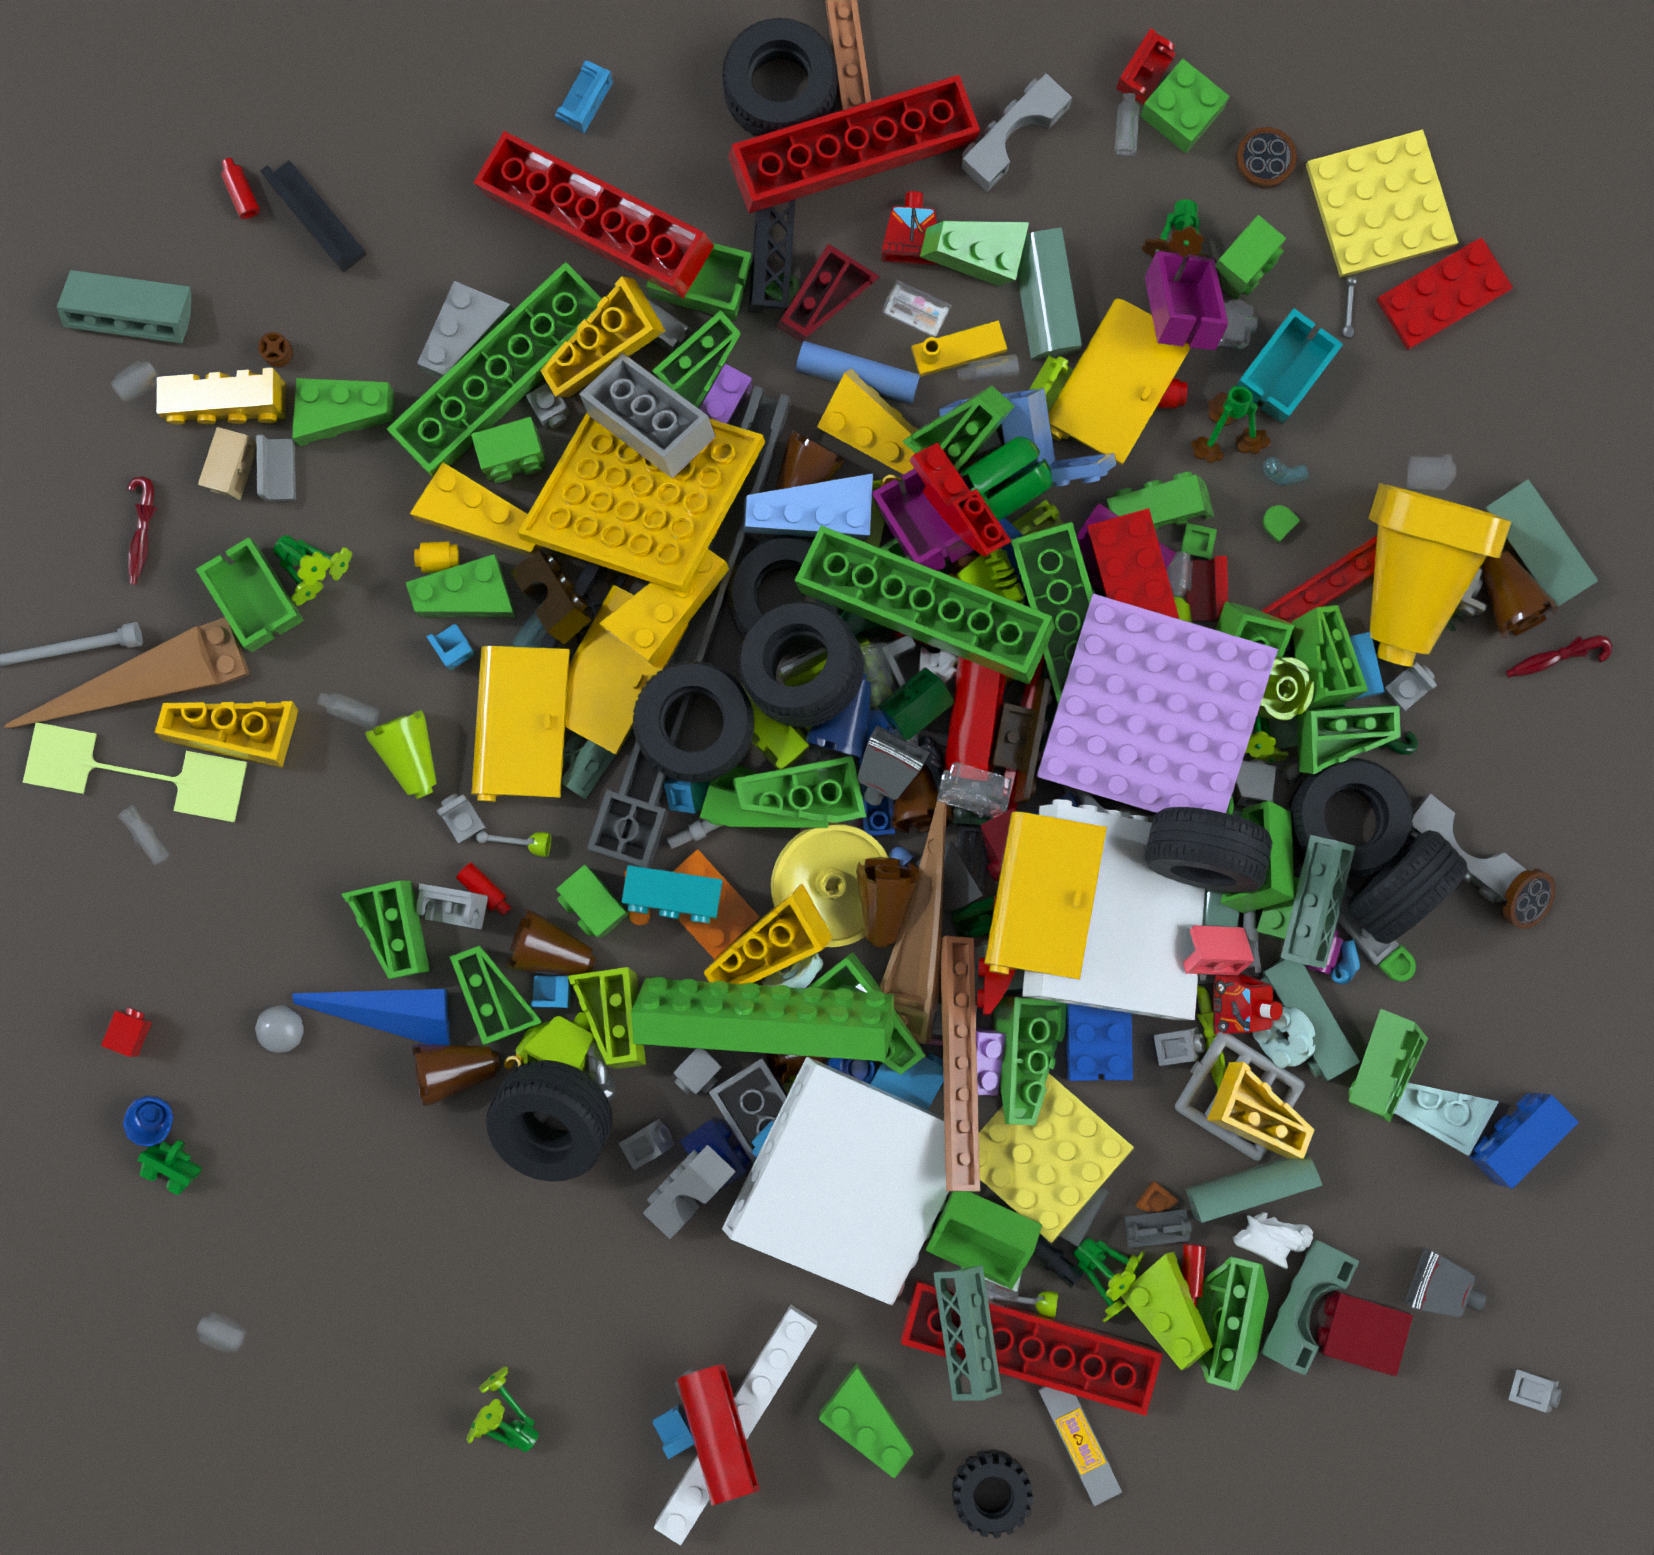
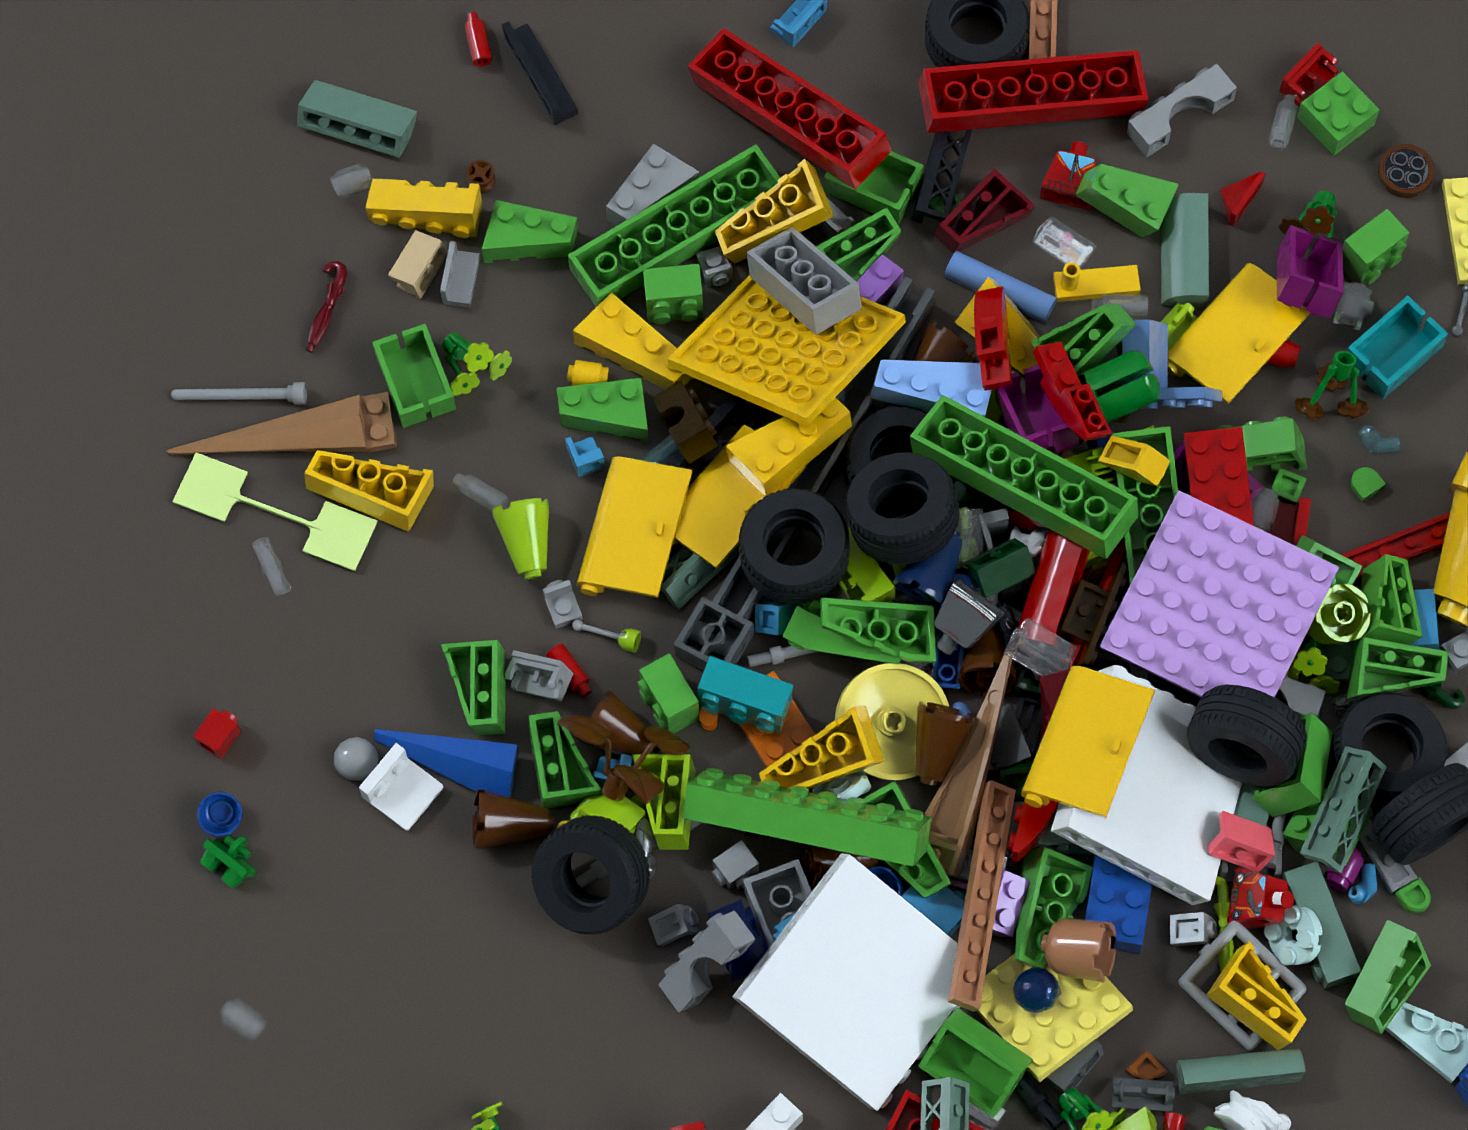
camera: 15 degrees right, 15 degrees down
(333, 1054) = (400, 788): none -> white bracket
(581, 1022) = (621, 777): none -> reddish brown plant
(861, 446) = (992, 338): none -> red slope
(1033, 1149) = (1036, 990): none -> clear blue hair
(1040, 569) = (1134, 460): none -> yellow slope
(1071, 1102) = (1080, 948): none -> nougat cylinder
(1093, 220) = (1240, 195): none -> red slope

